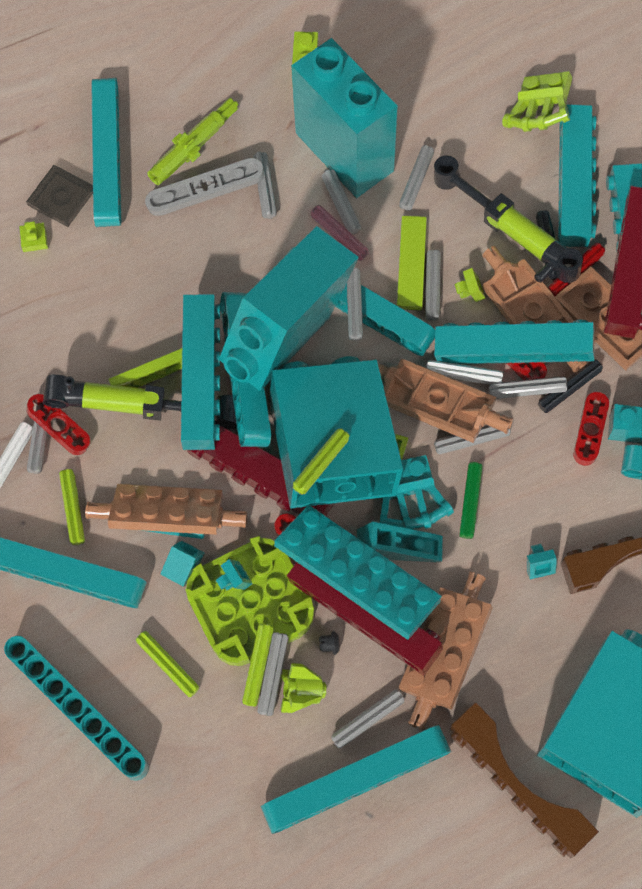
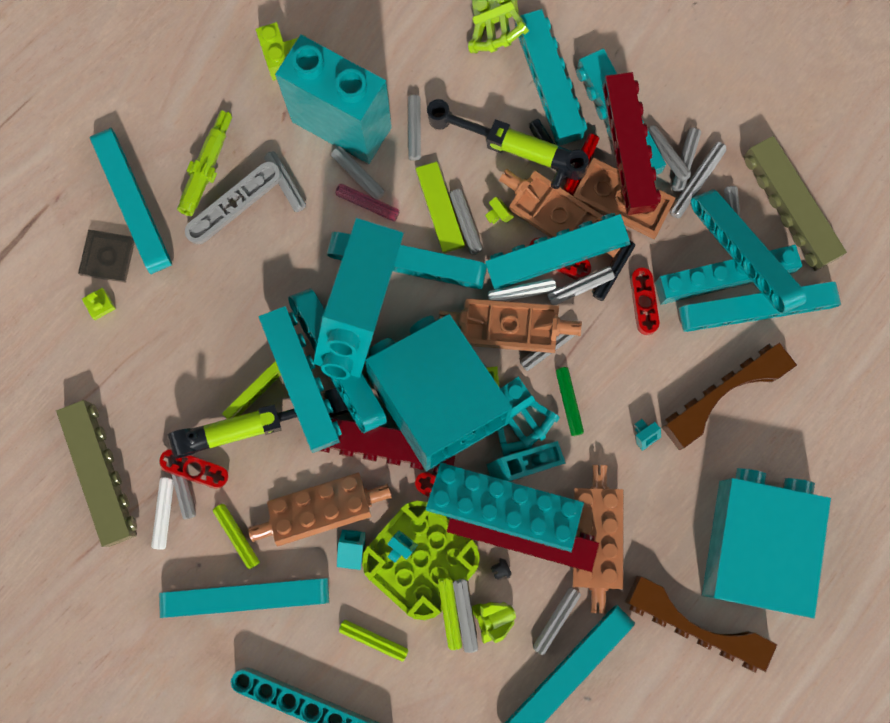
camera: 25 degrees left, 10 degrees up
(320, 461) = (442, 430): lime axle -> none
(354, 305) = (411, 272): light grey axle -> none

